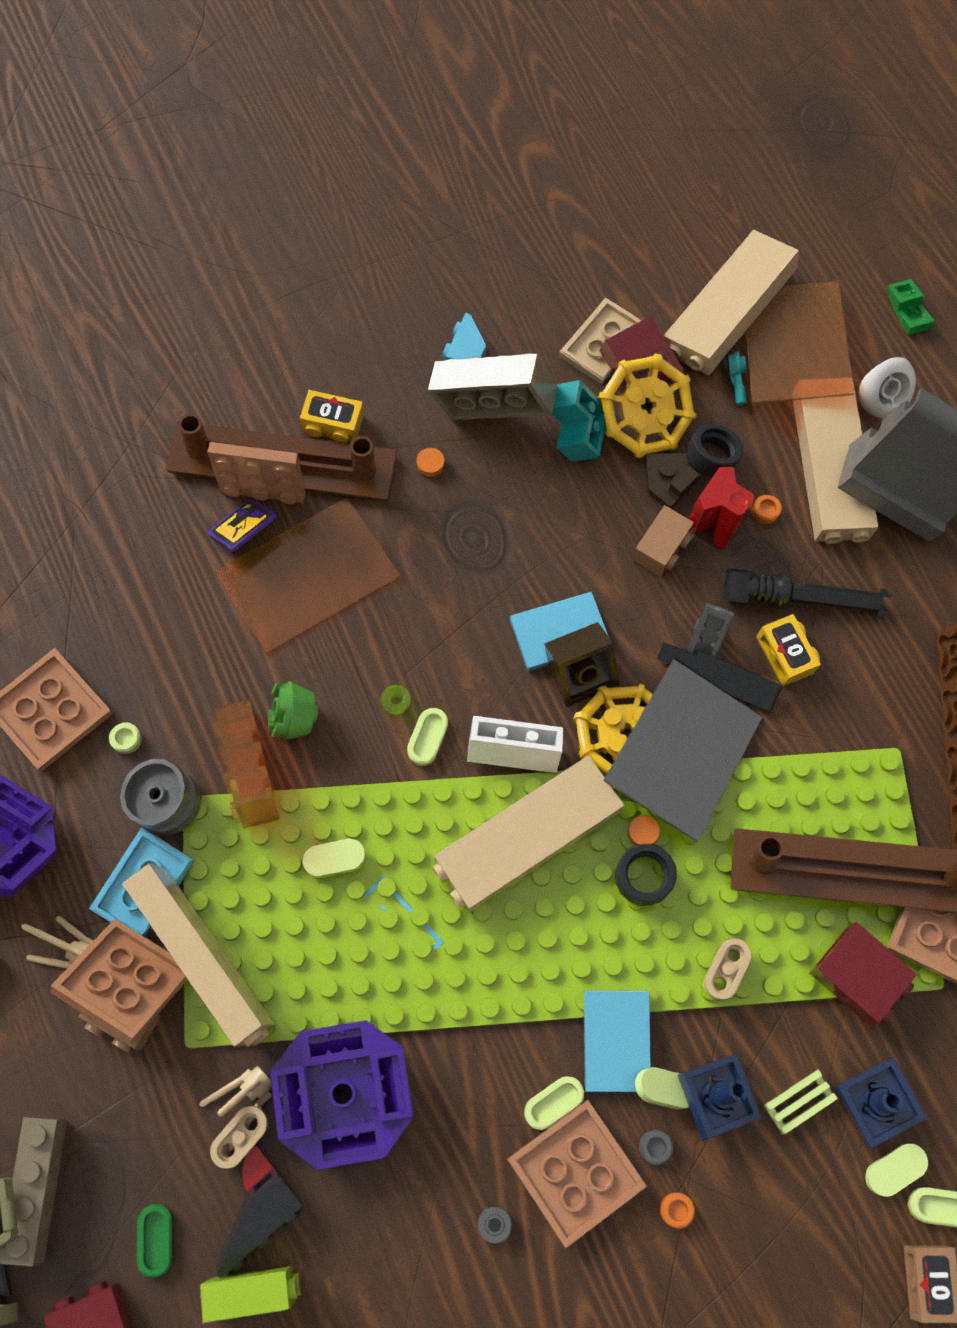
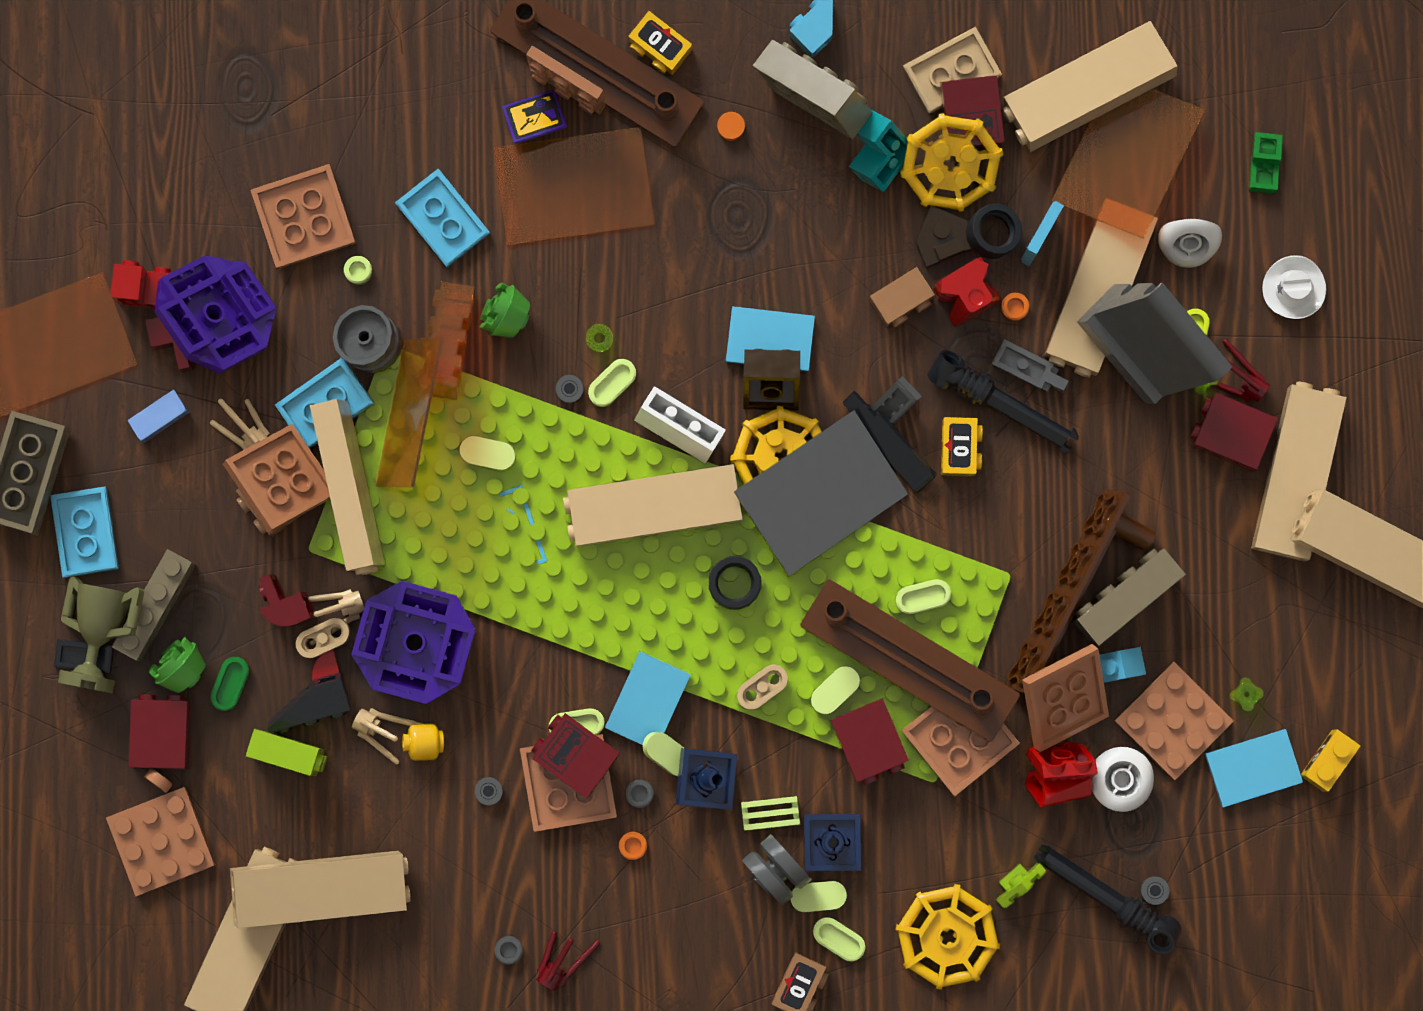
camera: 30 degrees right, 15 degrees up
(86, 1249) = (179, 666): none -> bright green cone
(181, 1126) = (281, 610): none -> dark red brick
(191, 654) = (442, 218): none -> medium azure tile
(235, 847) = (409, 412): none -> clear orange piece
(328, 1211) = (367, 723): none -> tan plant
(388, 760) = (569, 389): none -> dark grey tile
(399, 1203) = (423, 742): none -> yellow head
(572, 1137) = (574, 755): none -> dark red brick
(643, 830) = (752, 546): orange tile -> none
(737, 365) = (1061, 154): teal plate -> none
(763, 426) = (1041, 233): none -> medium azure tile
(799, 938) = (835, 690): none -> yellowish green tile
(810, 554) = (1028, 367): none -> dark grey hinge
(833, 805) = (923, 597): none -> yellowish green tile
(846, 1159) = (776, 870): none -> dark grey wheel

